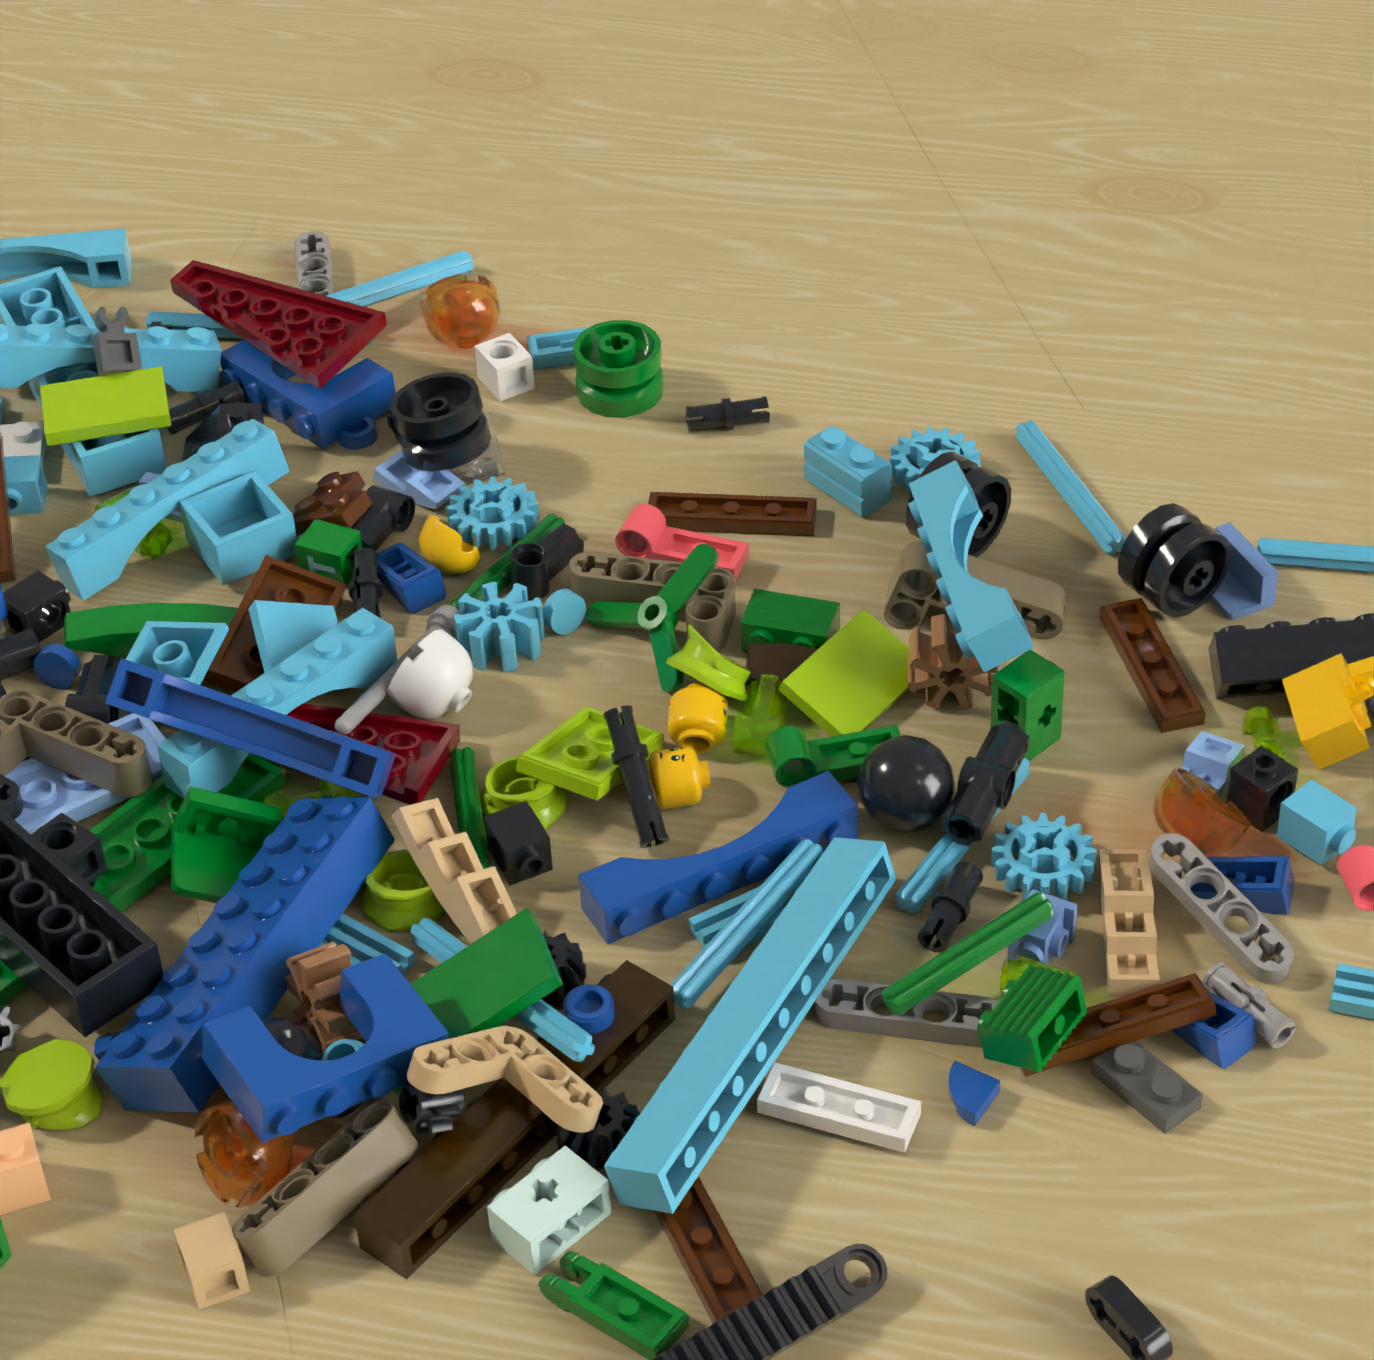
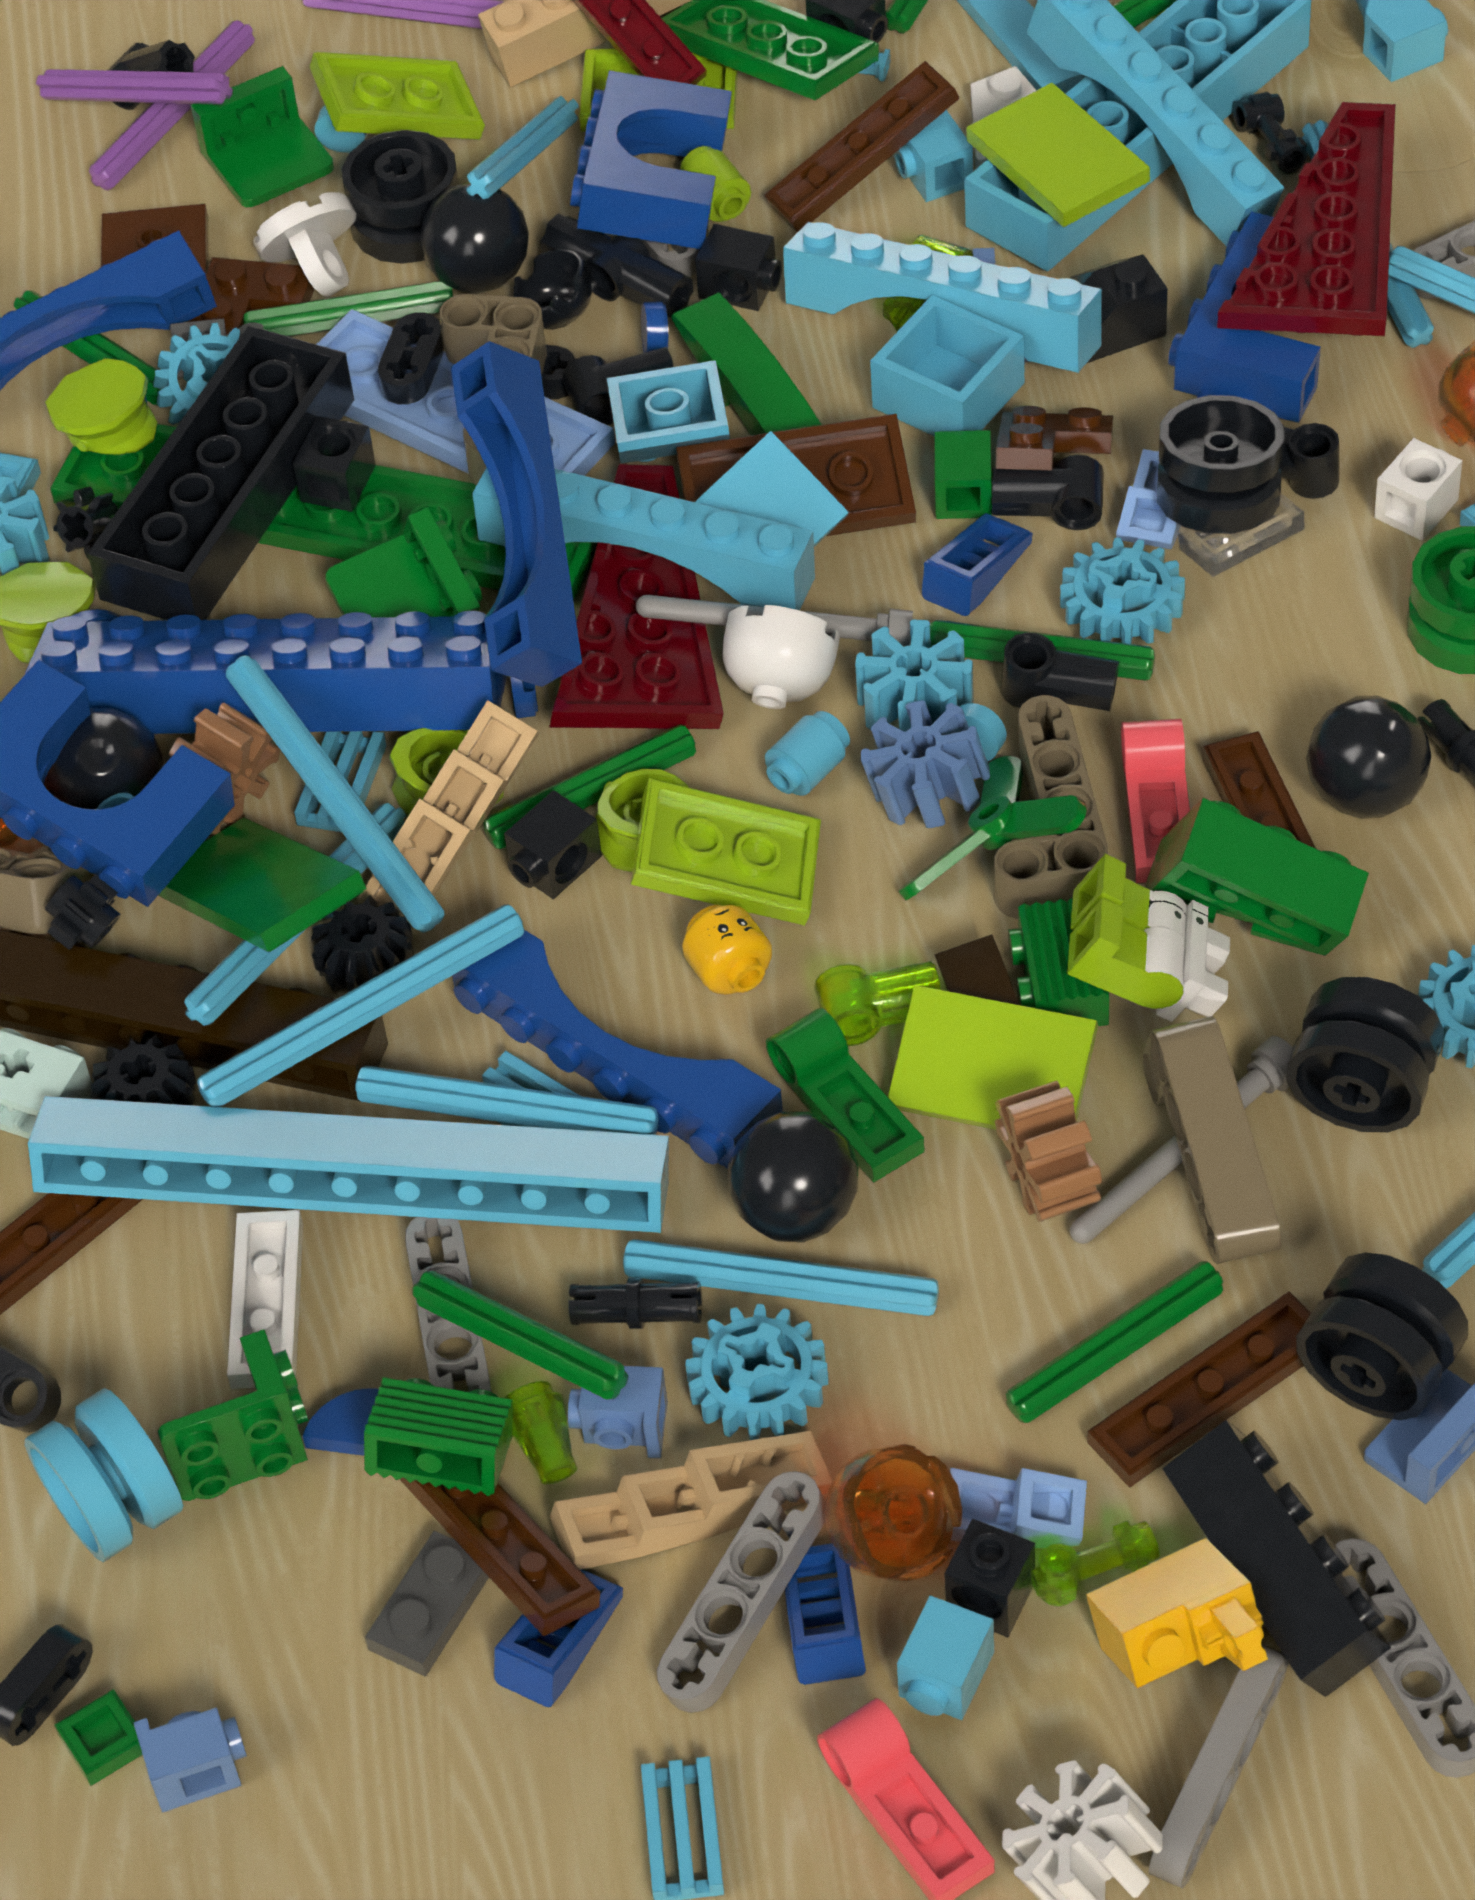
camera: 70 degrees right, 10 degrees up
(113, 347) = (1139, 113): dark grey plate -> none
(180, 414) = (1171, 247): black pin -> none
(365, 586) = (918, 533): black pin -> none
(402, 923) = (335, 794): none -> medium azure axle
(445, 548) = (1025, 574): yellow hair -> none
(517, 1058) = (148, 944): tan beam -> none
(525, 694) = (807, 753): none -> medium azure brick
(582, 636) = (925, 764): none -> medium blue gear
(590, 1008) = (279, 998): blue tile -> none
(628, 966) = (360, 1006): none -> medium azure axle
(631, 759) = (687, 894): black pin -> none
(697, 717) = (842, 930): yellow head -> none
(710, 667) = (912, 906): lime hat -> none
(719, 441) = (1368, 757): none -> black piece
(786, 510) = (1259, 877): none -> green wedge
(808, 572) = (1145, 944): none -> hips
(848, 471) = (1403, 915): medium azure brick -> none
(958, 1113) = (240, 1436): none -> green bracket
(977, 1218) = (104, 1474): none -> medium azure wheel
(985, 613) = (1044, 1126): medium azure arch -> none
(985, 783) = (835, 1260): black piece -> none
(1031, 696) = (999, 1259): green brick -> none
(1098, 693) = (1114, 1342): none -> green axle
(1182, 1301) = (100, 1737): none -> green tile
(1230, 1243) = (191, 1756): none -> medium blue brick
(1267, 1019) = (594, 1674): light grey pin -> none

